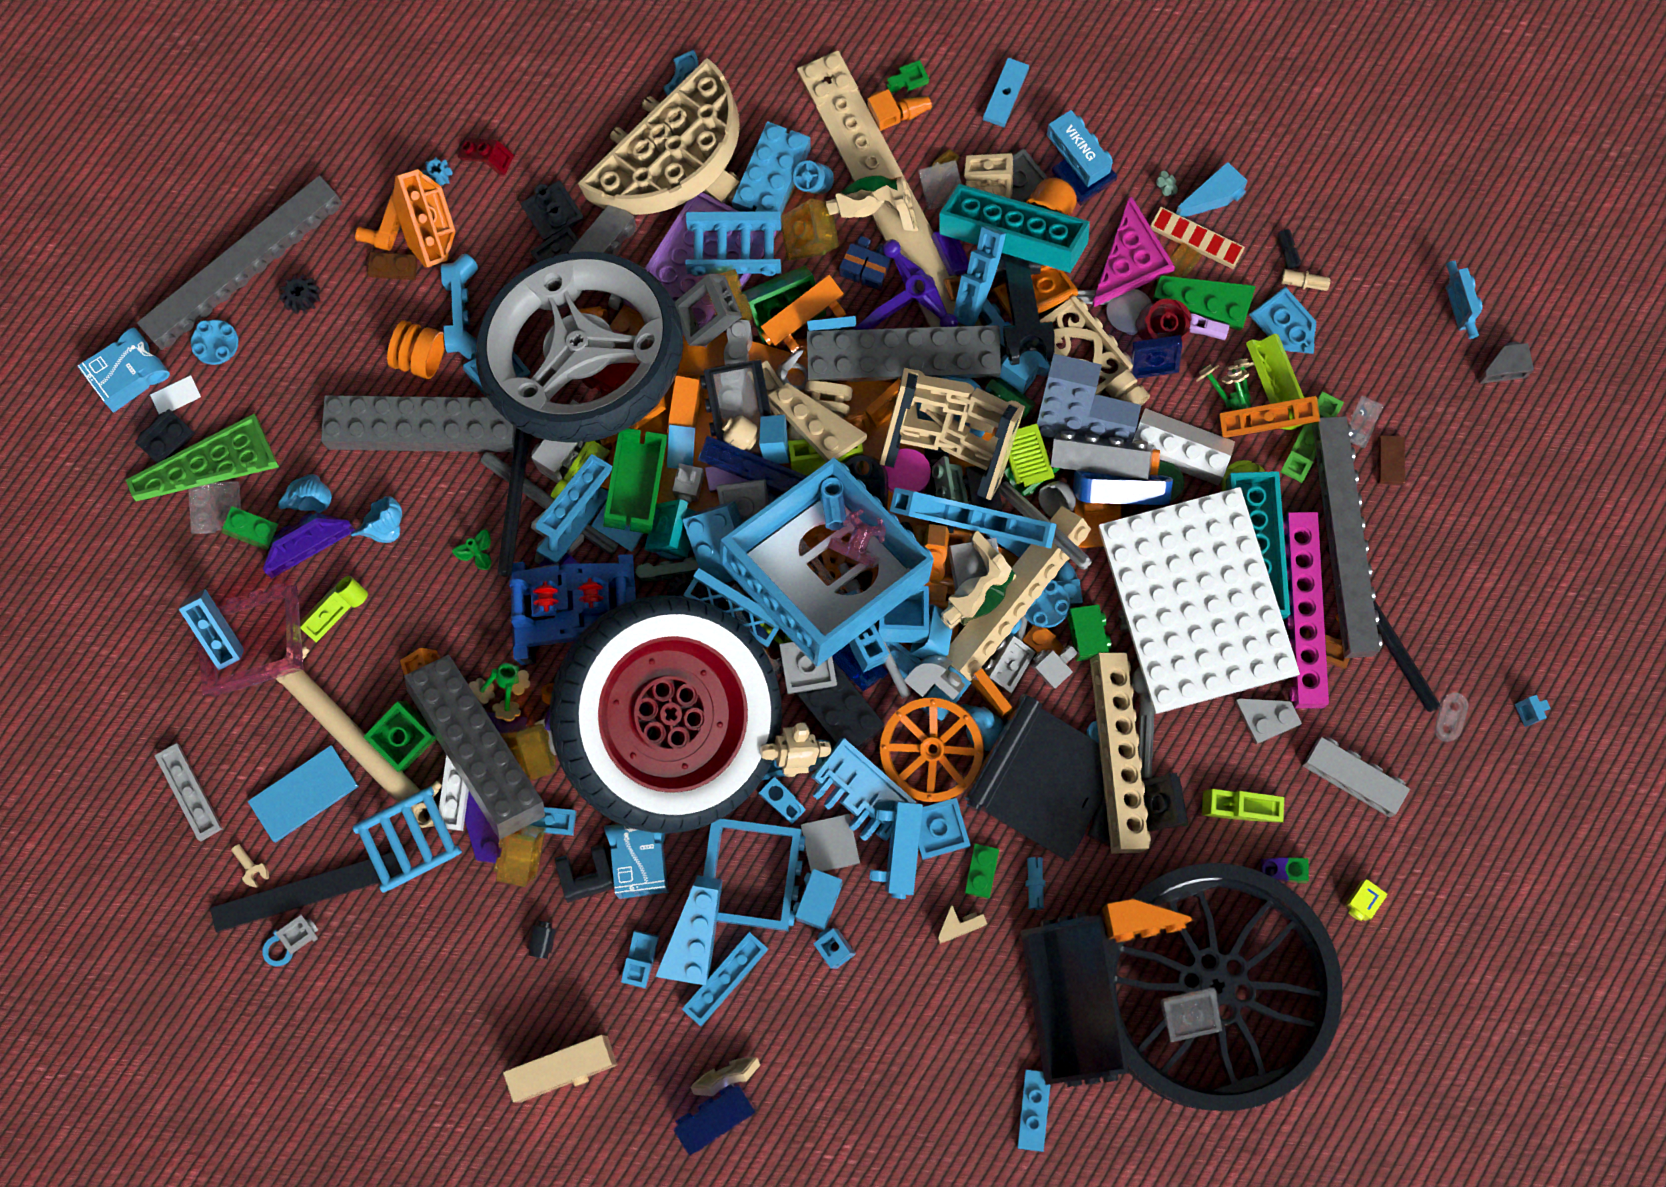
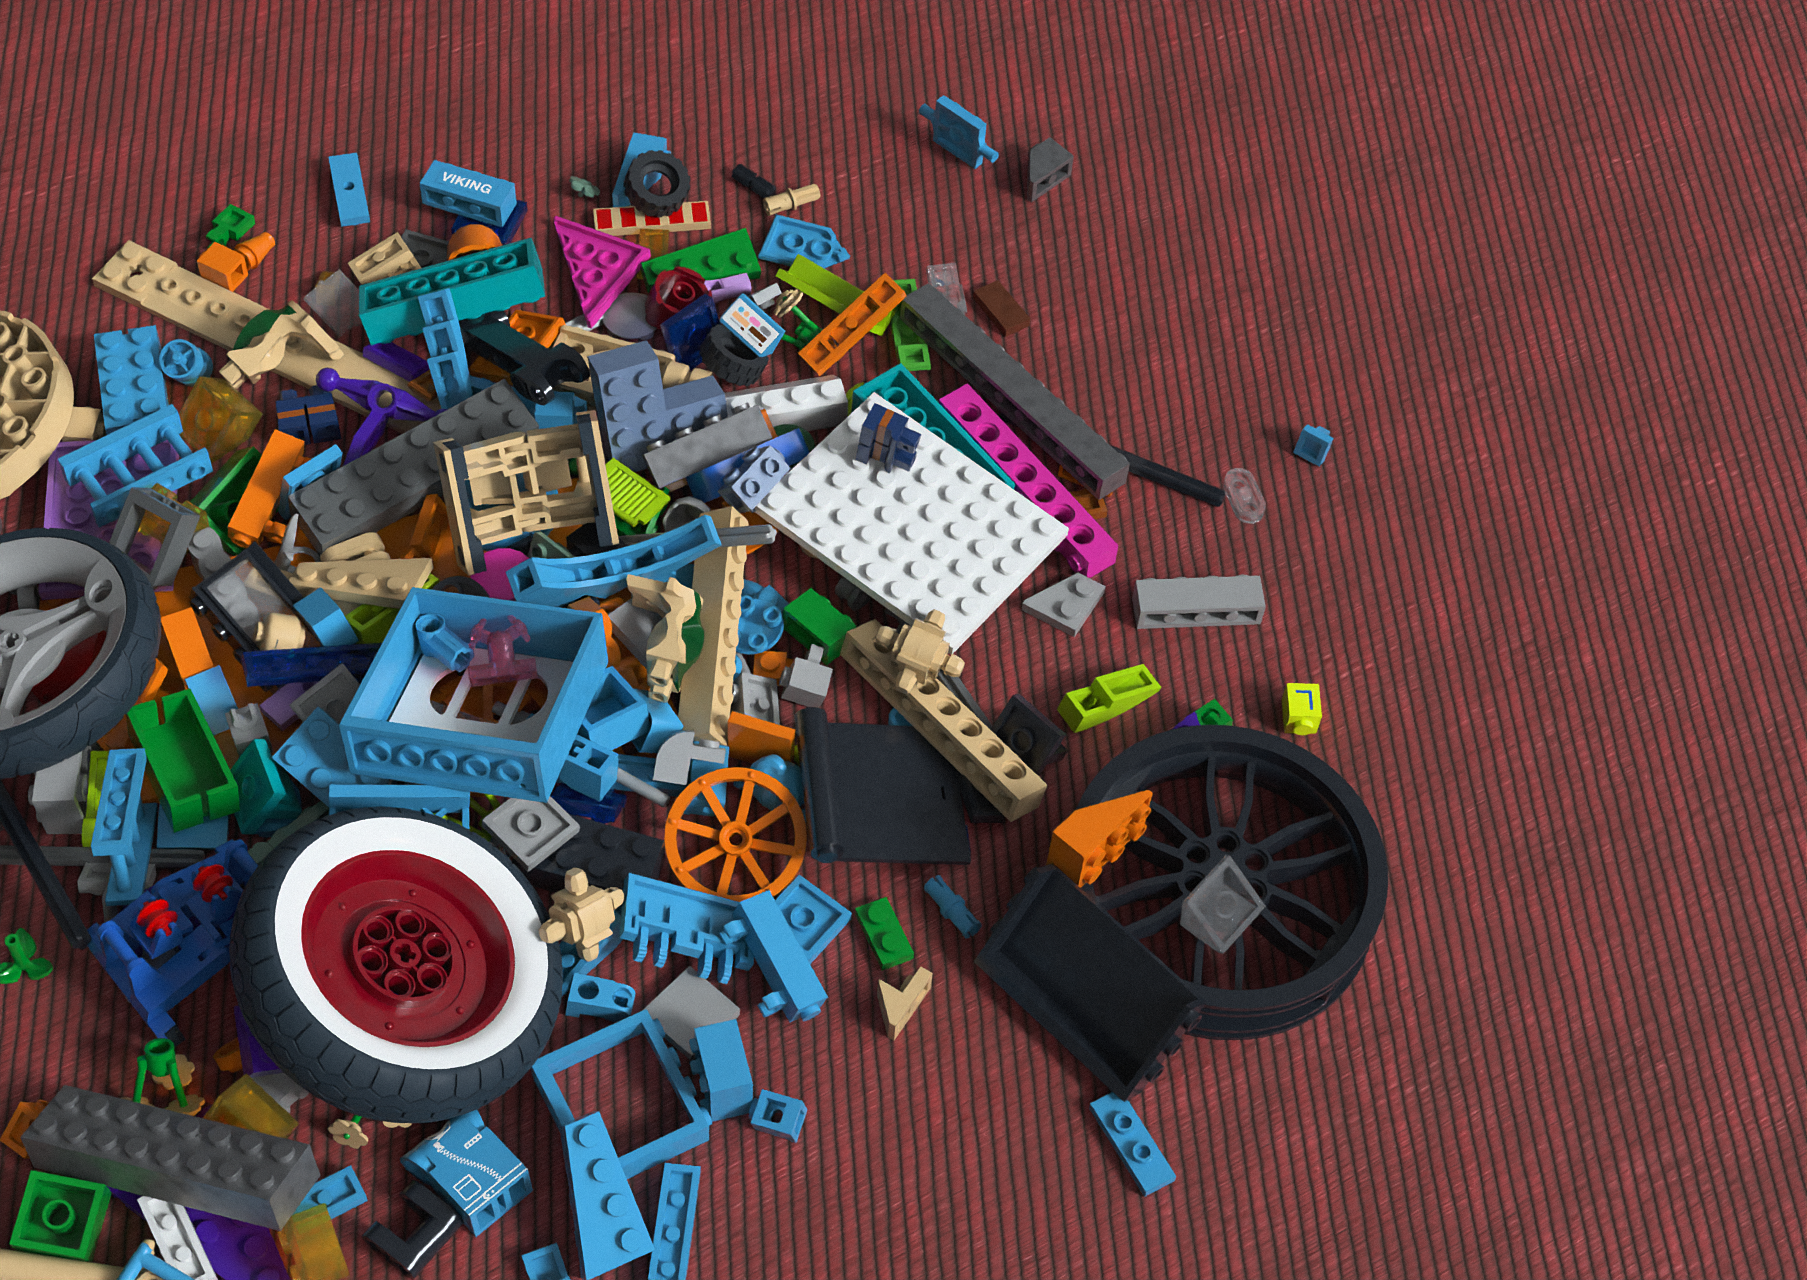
camera: 45 degrees left, 20 degrees down
(1112, 505) = (754, 478): none -> brick
(1130, 704) = (920, 651): none -> tan piece
(1159, 394) = (731, 357): none -> black tyre
(1198, 377) = (752, 326): none -> slope
(1216, 538) = (887, 439): none -> dark blue hips
(1220, 354) = (764, 297): none -> plate
(1232, 217) = (668, 166): none -> black tyre

